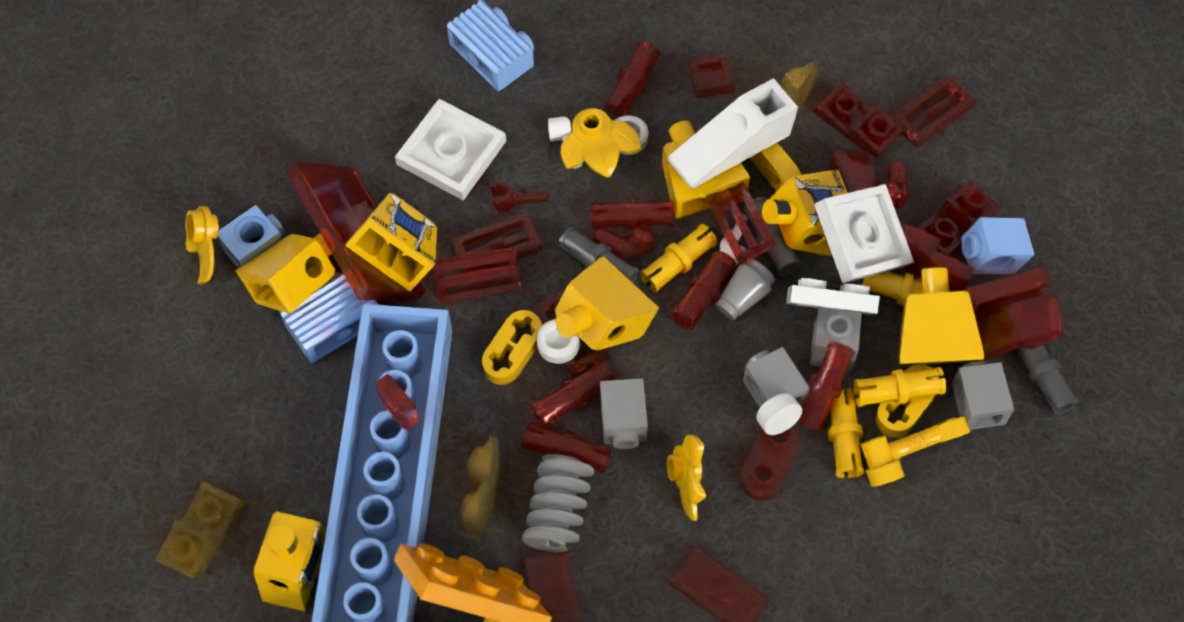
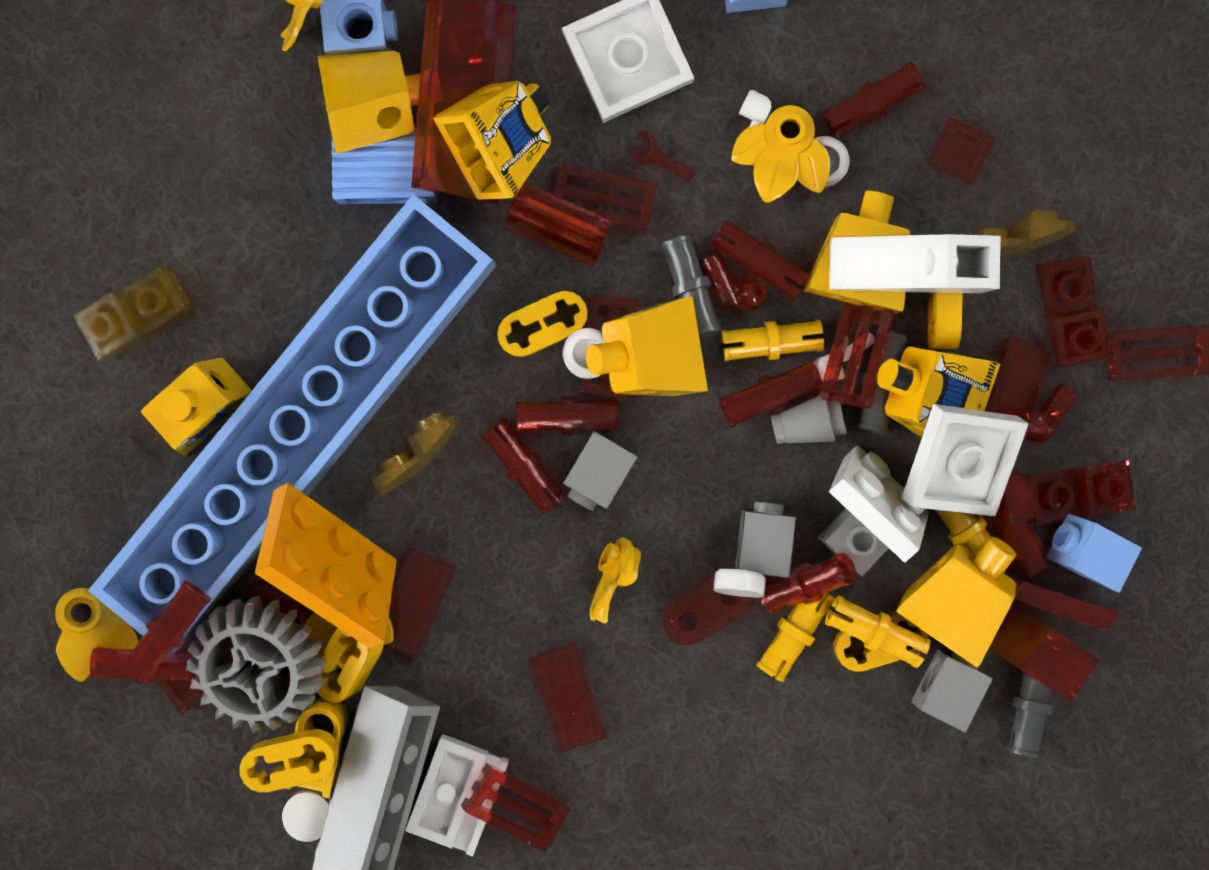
camera: 35 degrees right, 25 degrees up
(397, 402) = (372, 335): clear red tile -> none
(555, 503) = (476, 520): light grey piece -> none
(885, 456) = (810, 684): yellow brick -> none

